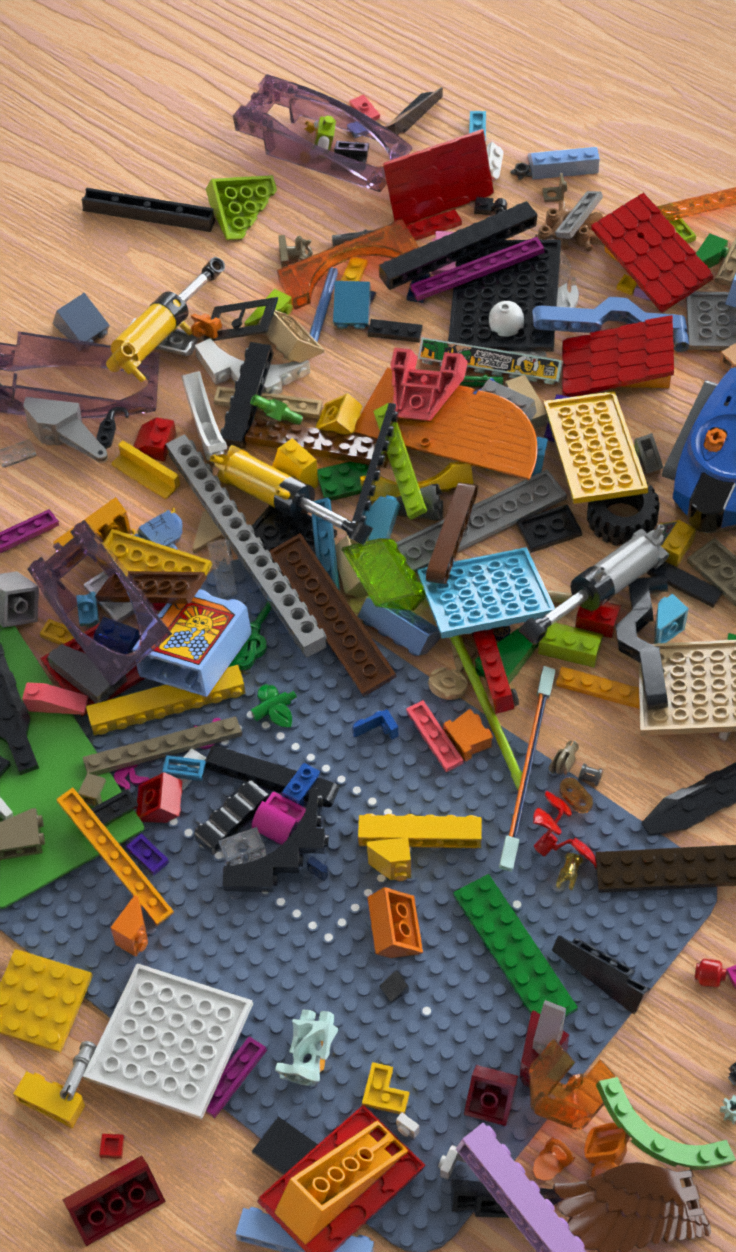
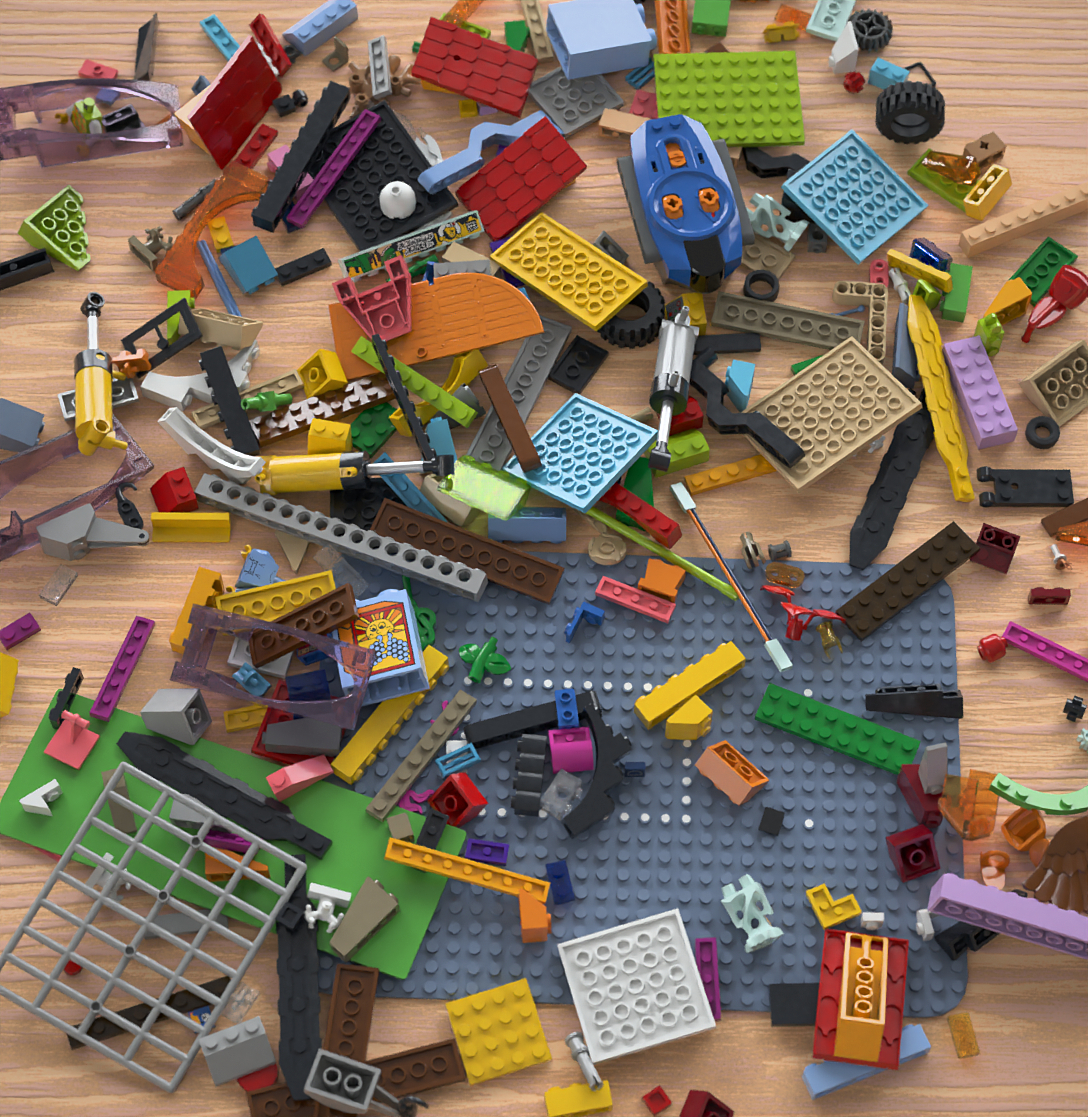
camera: 40 degrees left, 5 degrees up
(184, 917) = (560, 882): none -> clear blue plate
(510, 155) = (270, 43): none -> red plate

